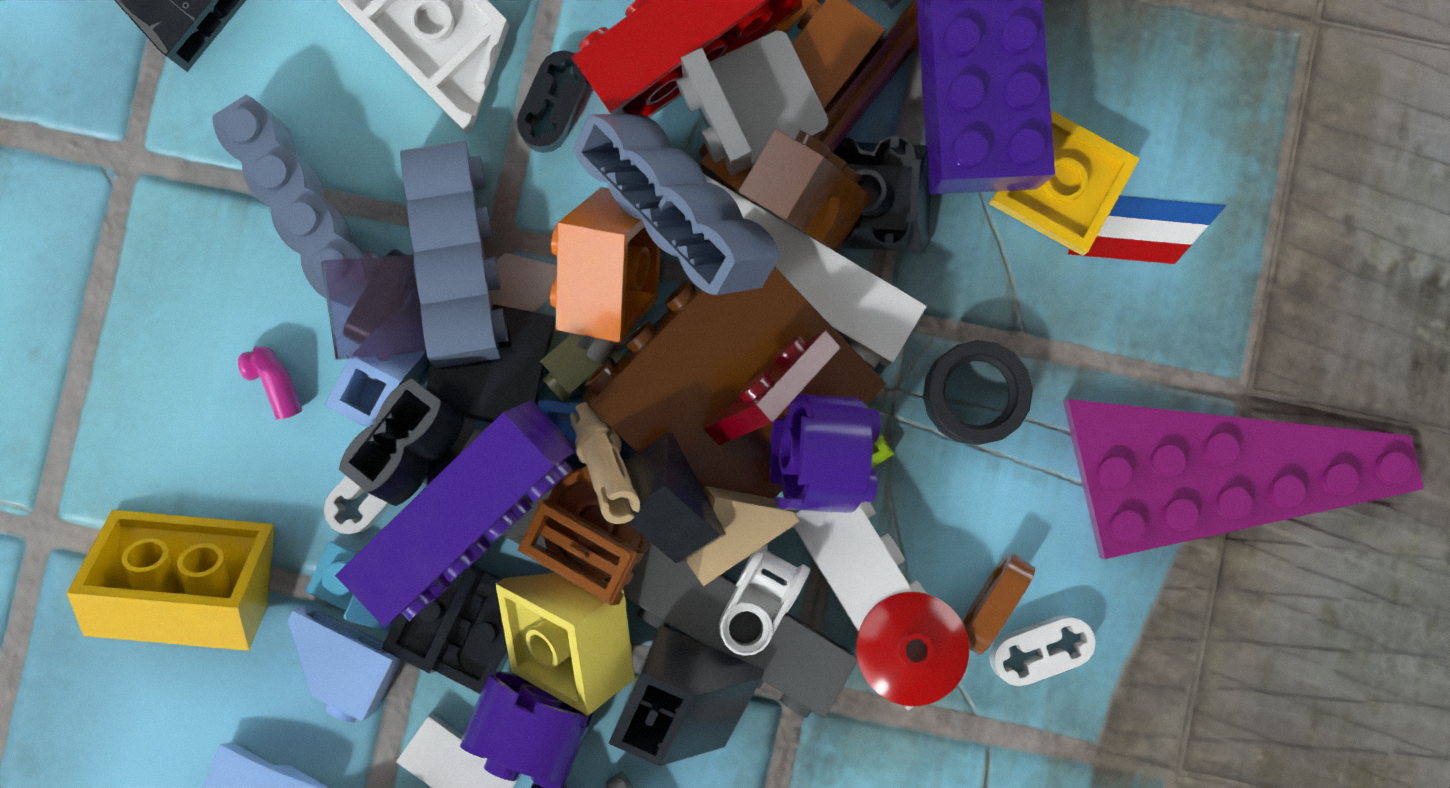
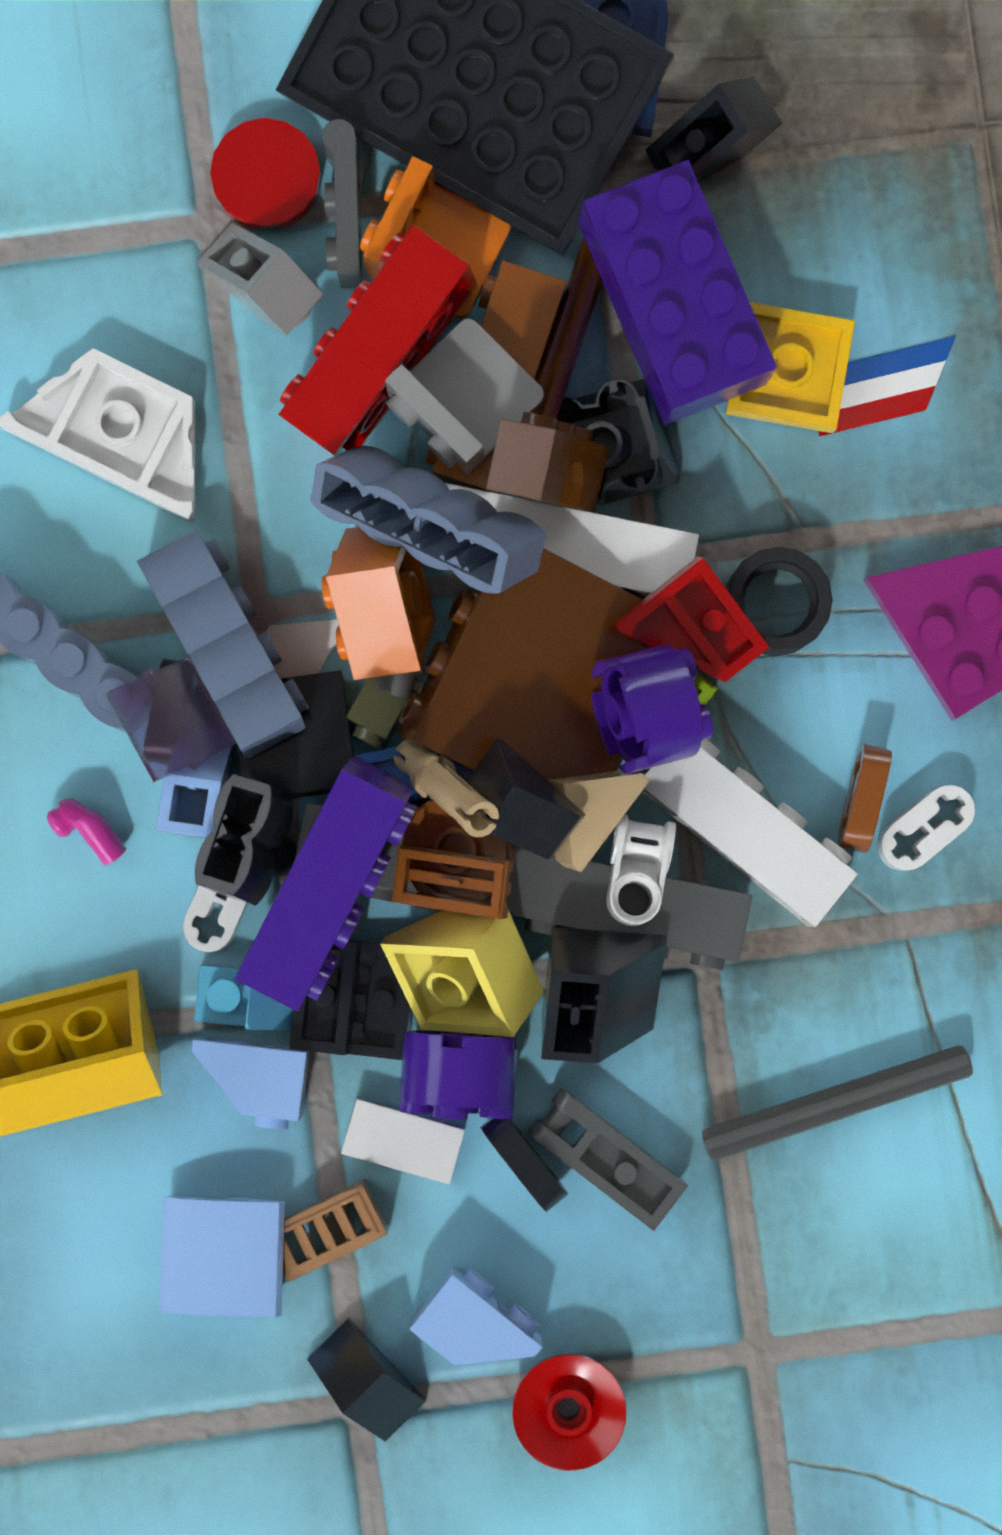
camera: 25 degrees left, 0 degrees up
(542, 96) = (251, 461): black beam -> none
(775, 389) = (582, 663): dark red wing -> none
(883, 645) = (775, 883): red dish -> none
(899, 382) = (698, 615): none -> red wing

